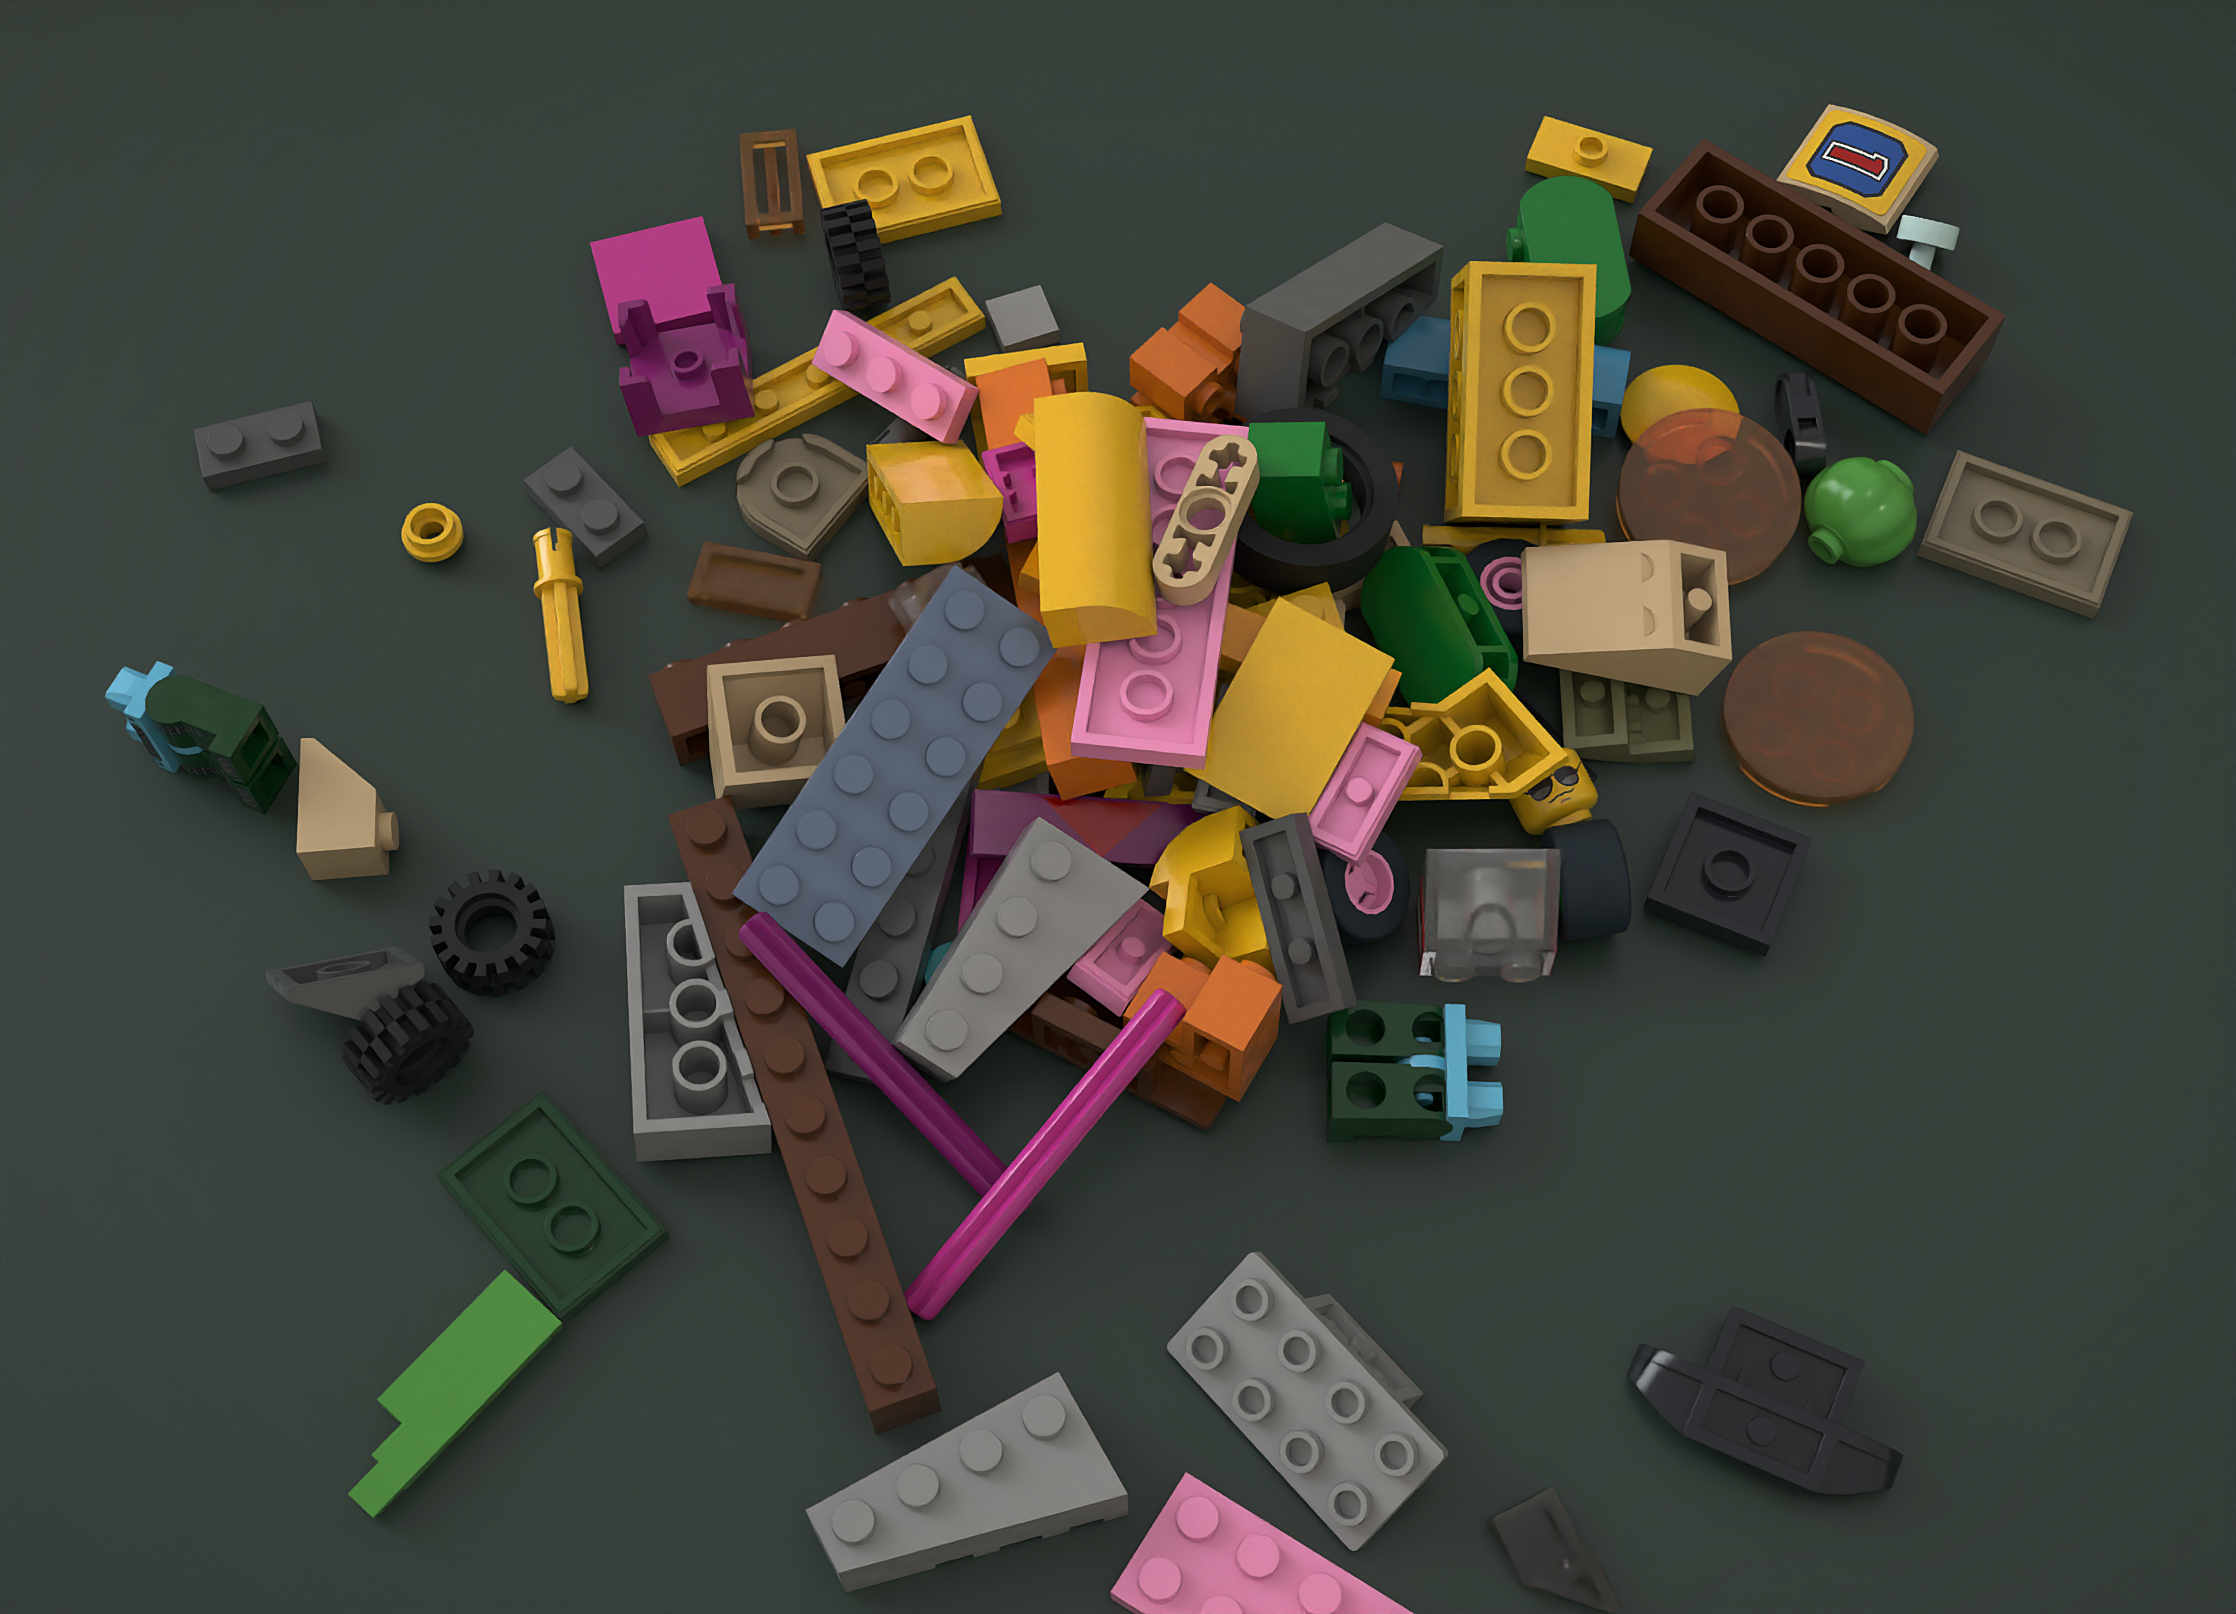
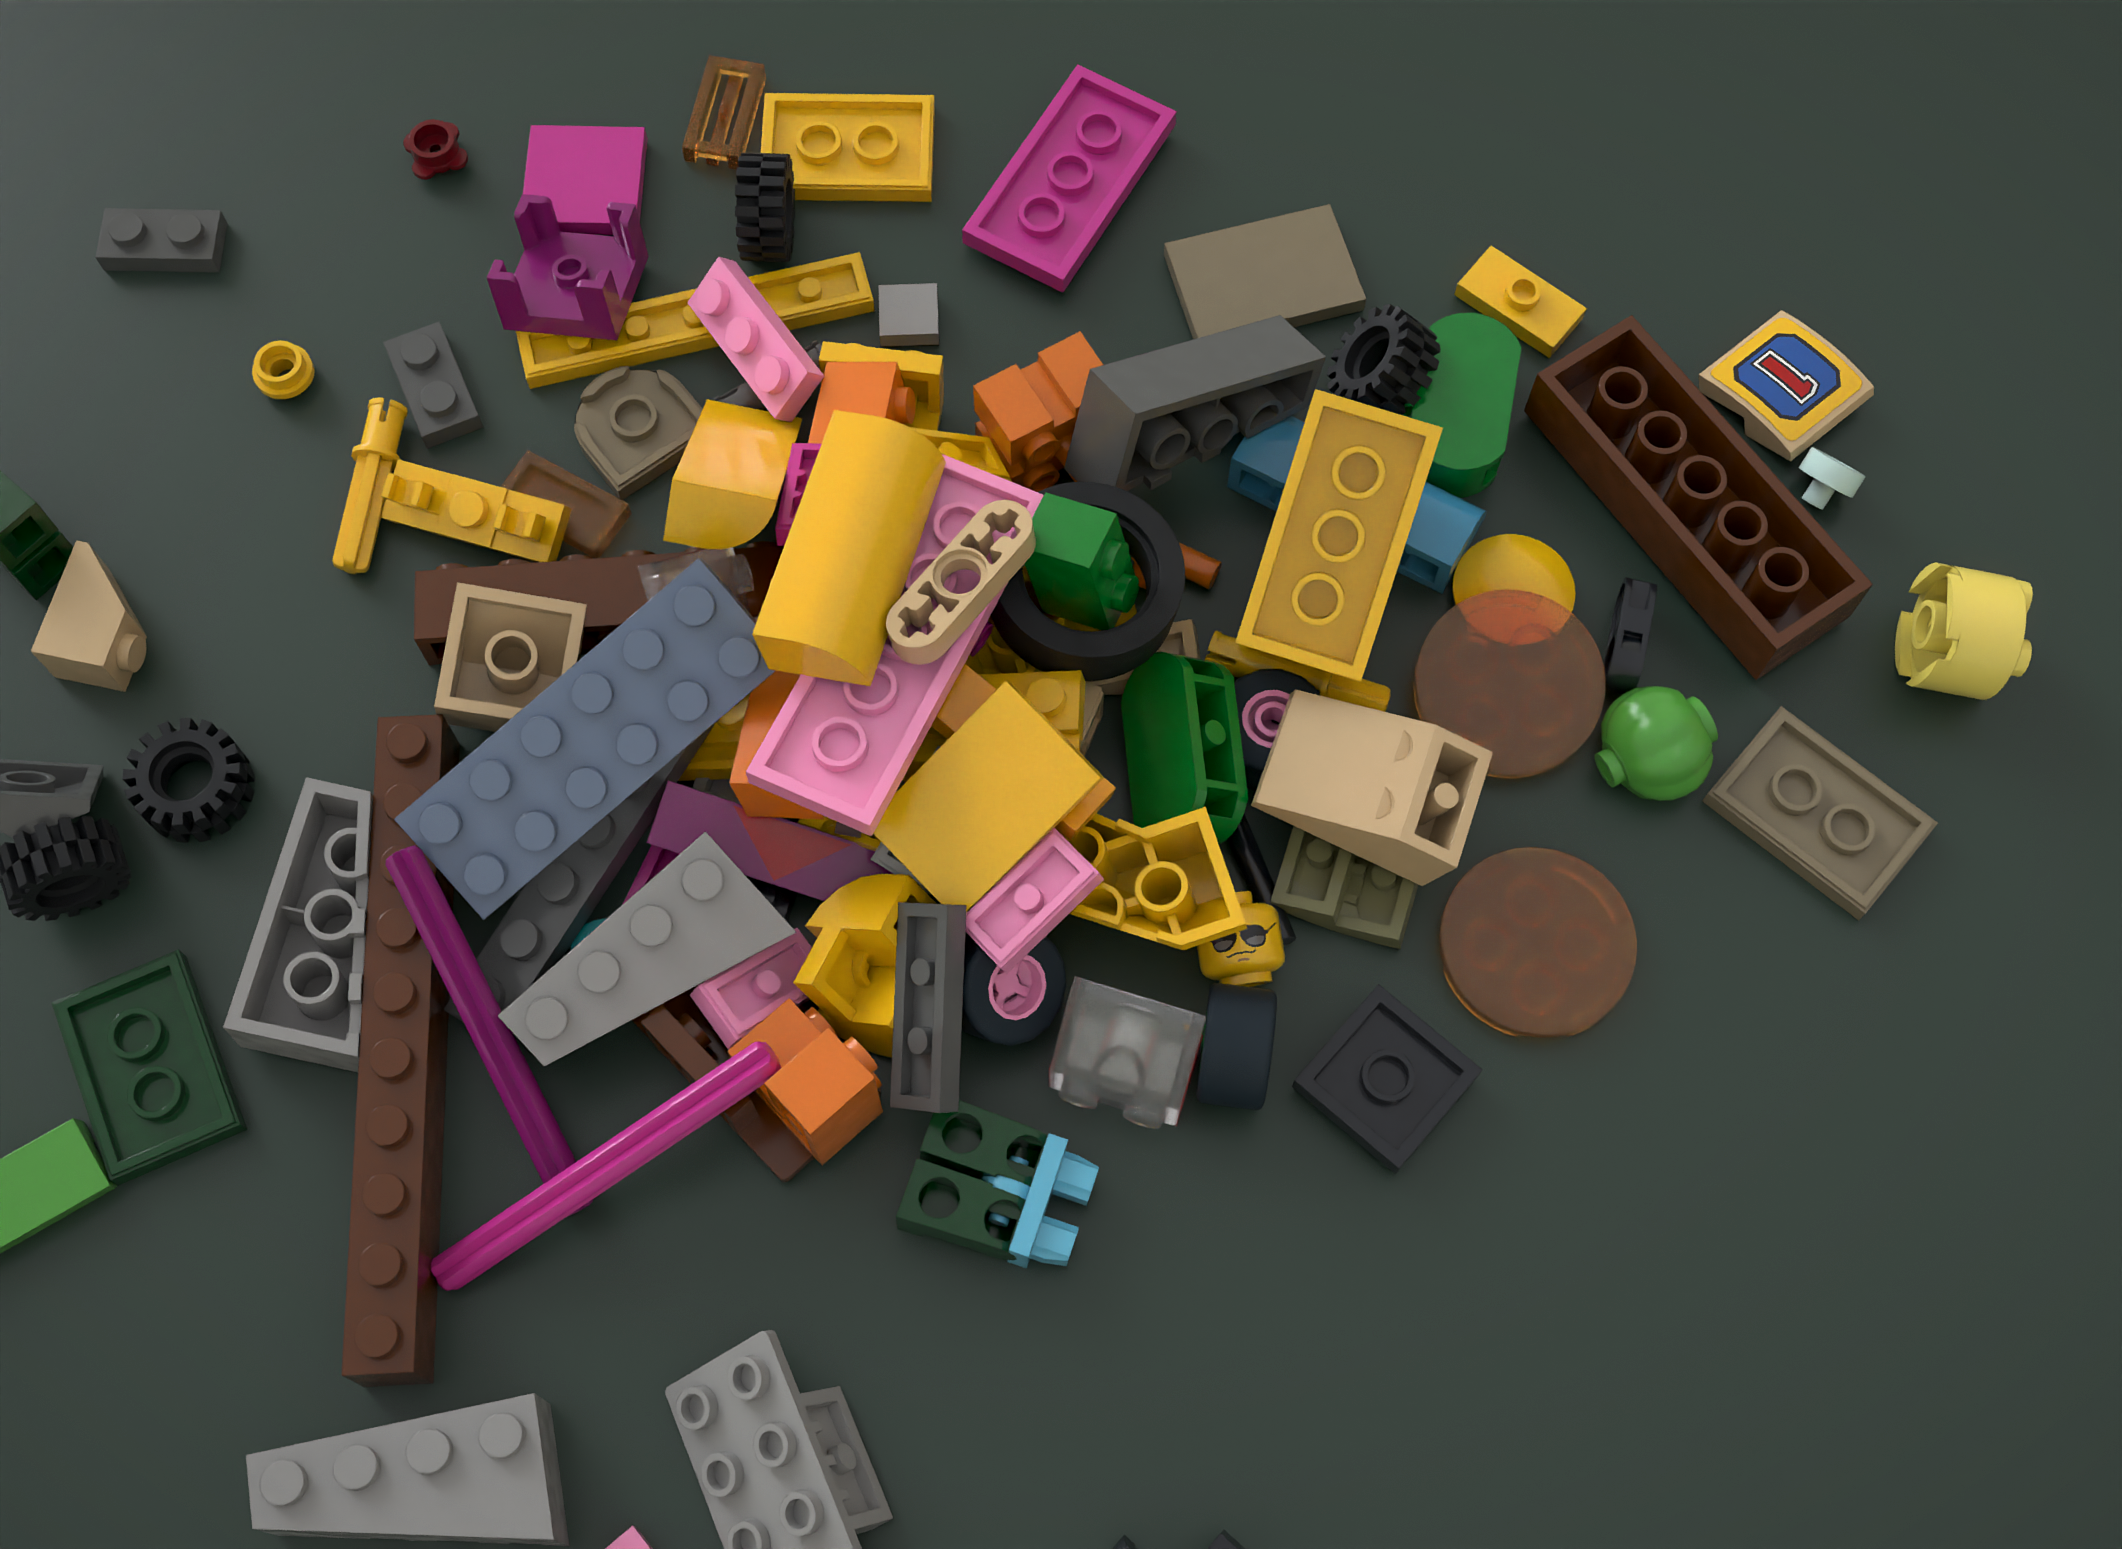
camera: 15 degrees right, 5 degrees up
(497, 277) = (433, 136): none -> dark red plate
(676, 610) = (474, 512): none -> yellow plate
(1129, 157) = (1069, 178): none -> dark pink plate
(1343, 195) = (1265, 270): none -> dark tan tile
(1491, 219) = (1384, 360): none -> black tyre
(2097, 337) = (1964, 631): none -> light yellow brick

